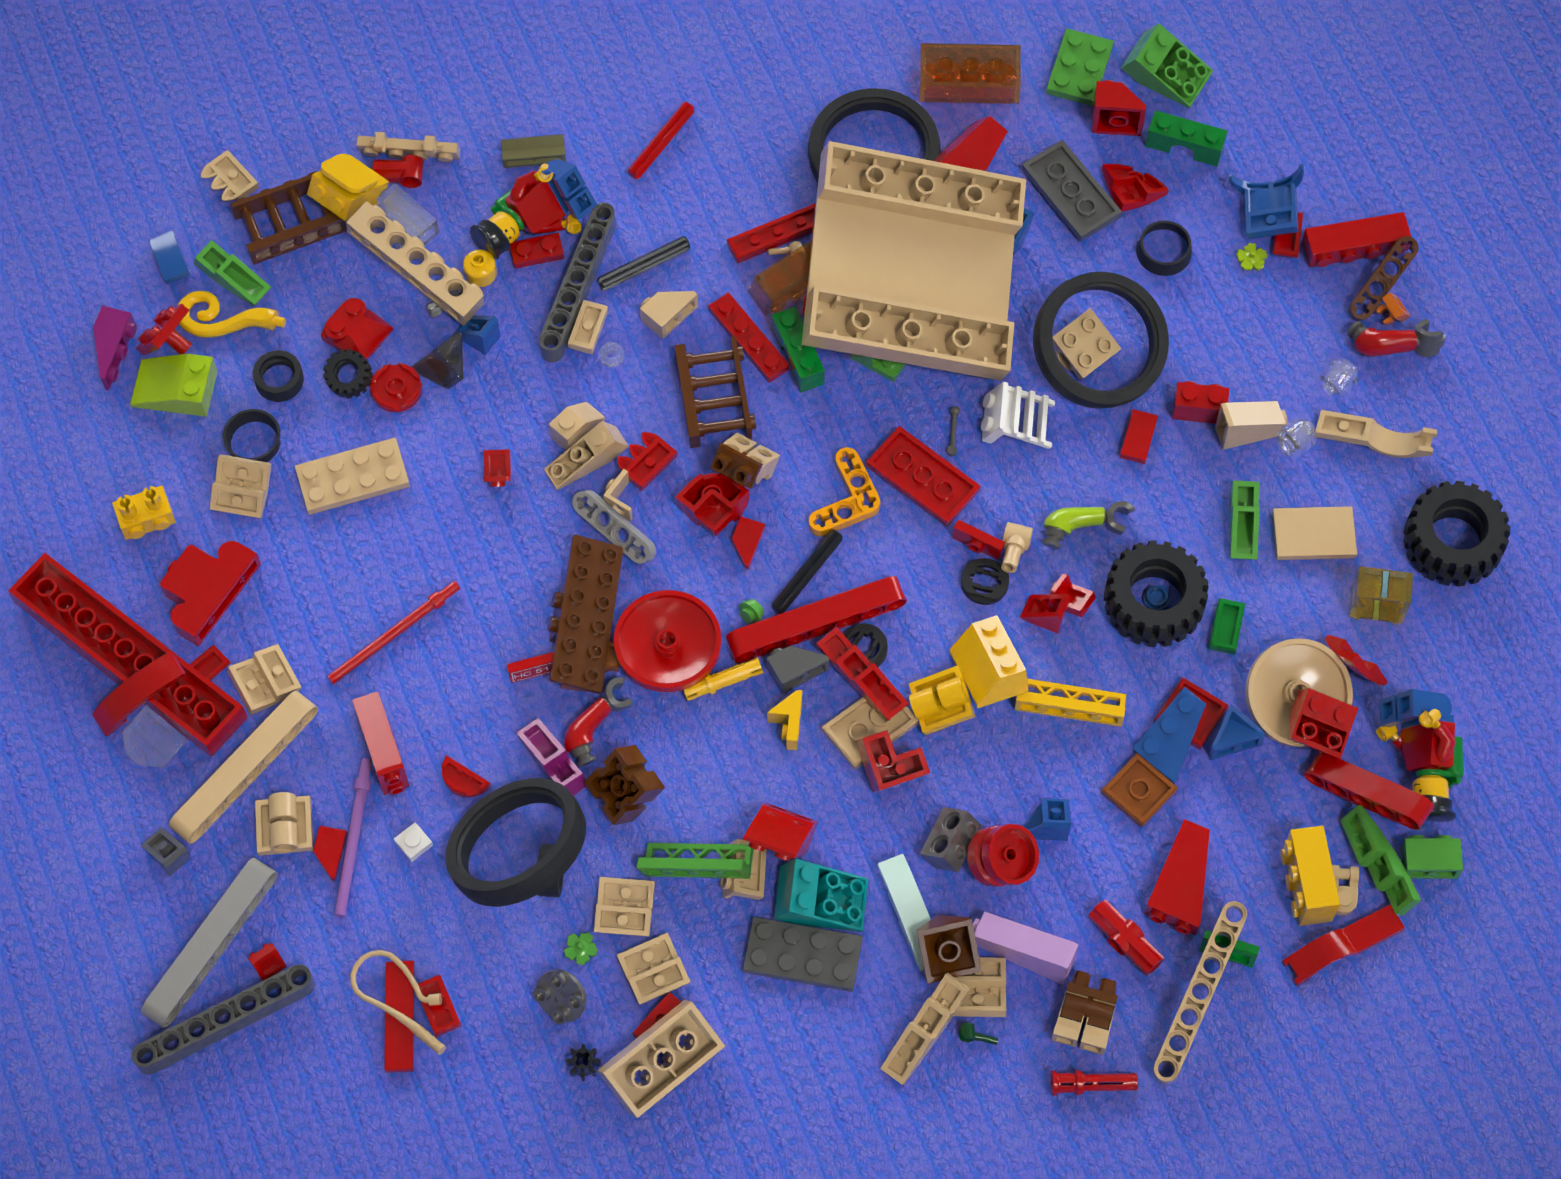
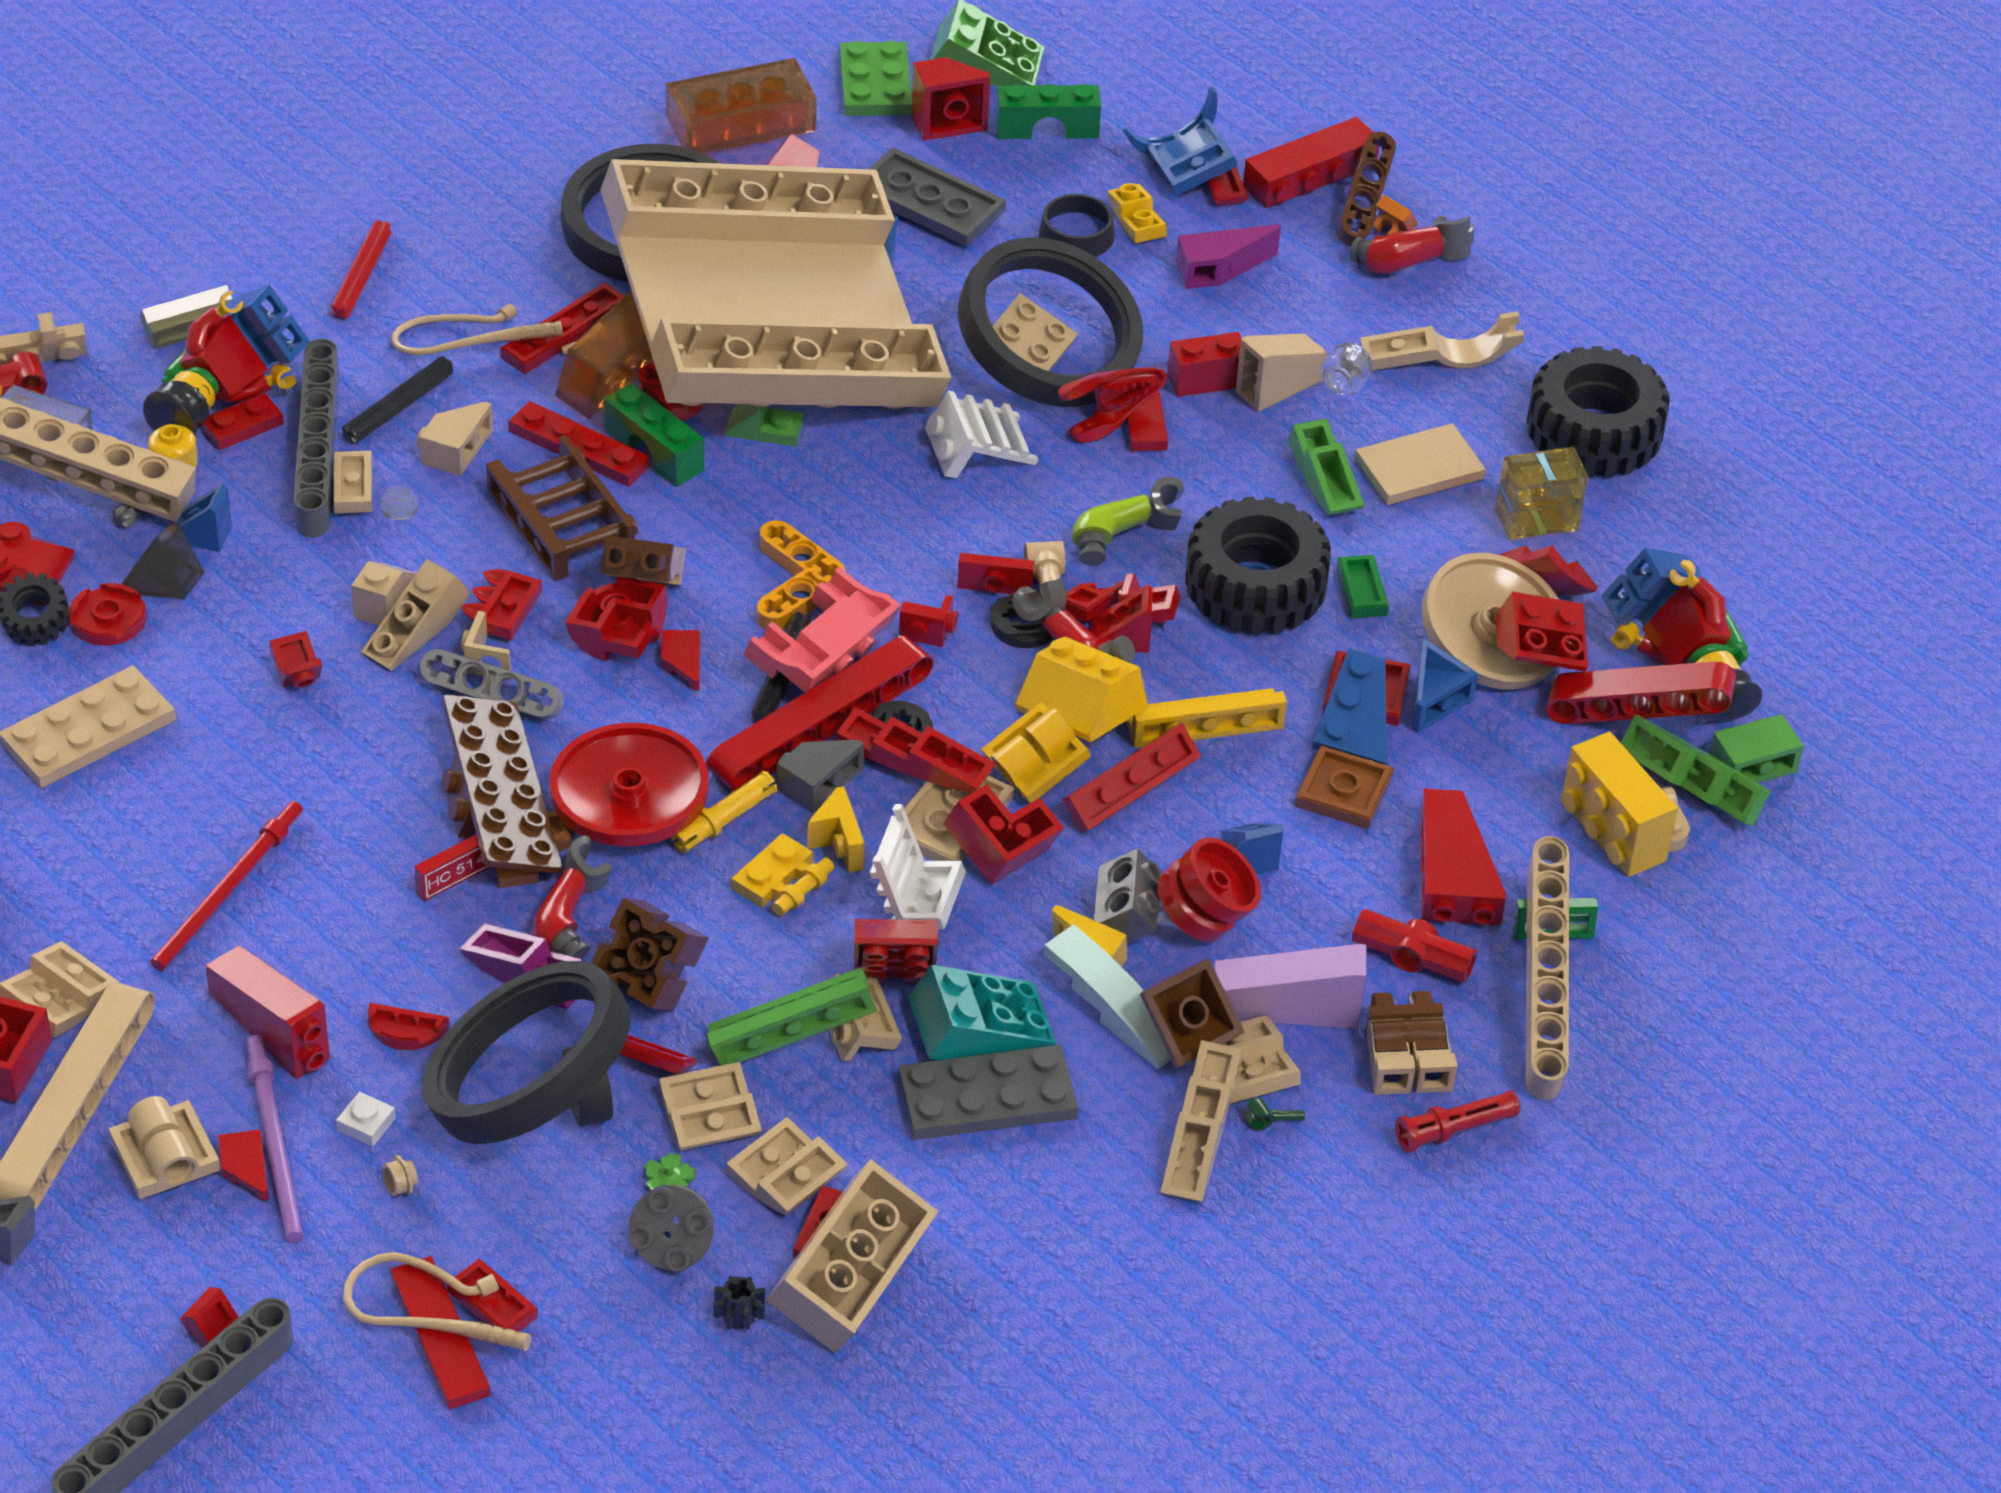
camera: 25 degrees left, 20 degrees down
(209, 943) = (109, 1323): light grey beam -> none
(417, 894) = (399, 1176): none -> tan plate
(604, 855) = (657, 1055): none -> red tile
(737, 232) = (504, 314): none -> tan piece
(737, 734) = (774, 869): none -> yellow plate
(751, 611) = (725, 725): bright green plate -> none
(818, 780) = (914, 886): none -> white plate
(838, 569) = (830, 641): none -> coral bracket
(914, 568) = (928, 623): none -> red bracket
(920, 869) = (1107, 938): none -> yellow slope
(923, 476) = (887, 527): red plate -> none
(952, 450) = (909, 494): dark grey hinge -> none
(992, 580) = (1062, 623): none -> dark grey piece
(998, 739) = (1131, 777): none -> red plate
(1033, 580) = (1088, 601): none -> red tile
(1121, 416) = (1116, 396): none -> red animal
(1132, 188) = (1004, 178): red brick -> none
(1212, 247) = (1136, 213): none -> yellow slope
(1251, 257) = (1190, 213): lime plant -> none
(1251, 307) = (1222, 255): none -> magenta slope
(1339, 377) = (1366, 298): clear head -> none
(1343, 943) = (1683, 877): red piece -> none

